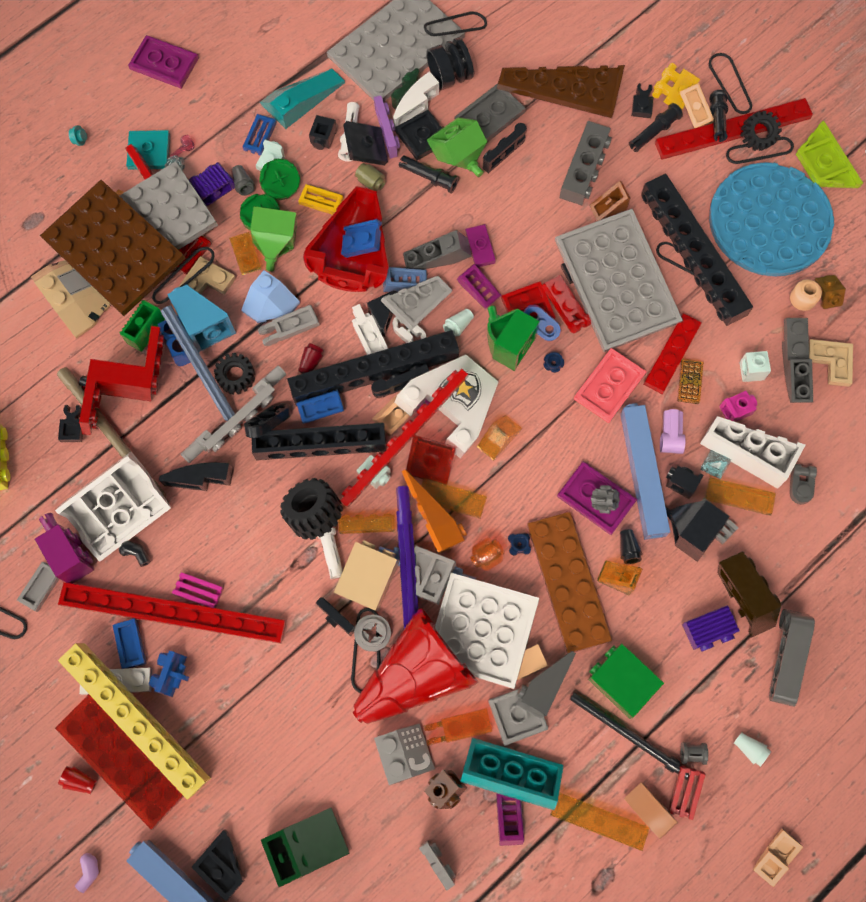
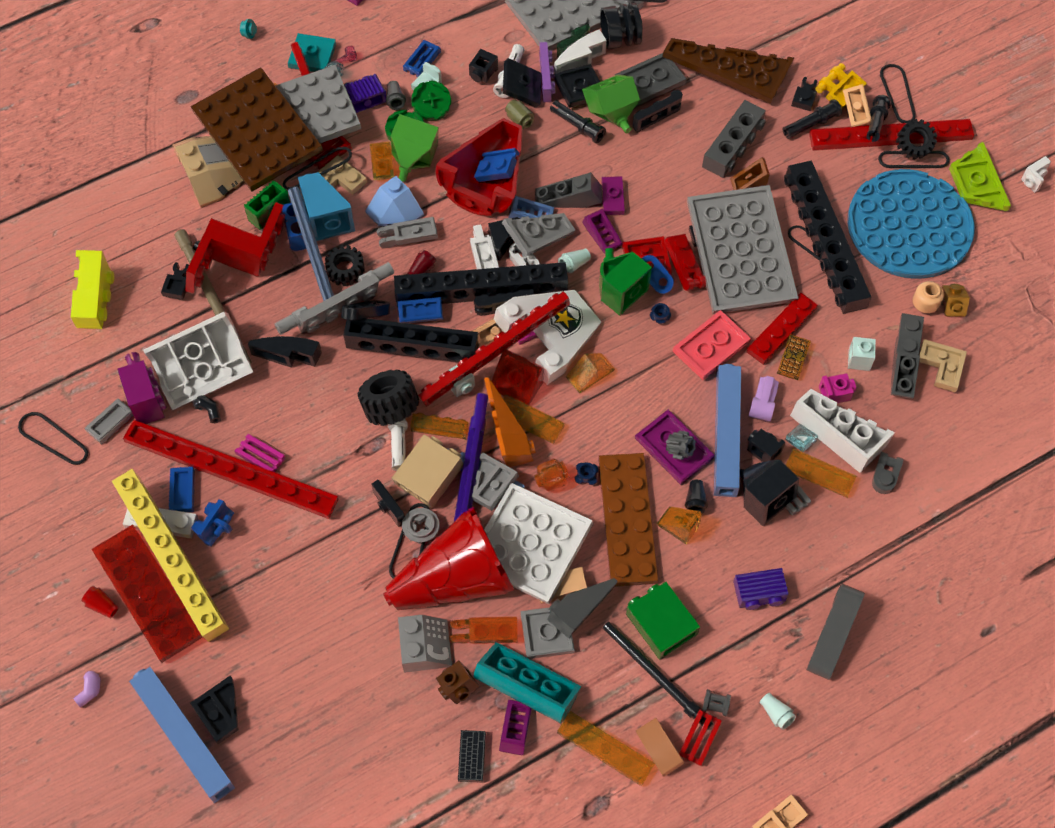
camera: 10 degrees right, 10 degrees down
(297, 99) = (465, 34): teal wedge -> none
(304, 847) = (305, 707): dark green slope -> none
(323, 204) = (464, 129): yellow tile -> none
(443, 872) = (430, 742): light grey wing -> none
(474, 858) = (471, 756): none -> black tile
(750, 592) = (808, 562): dark brown wedge -> none

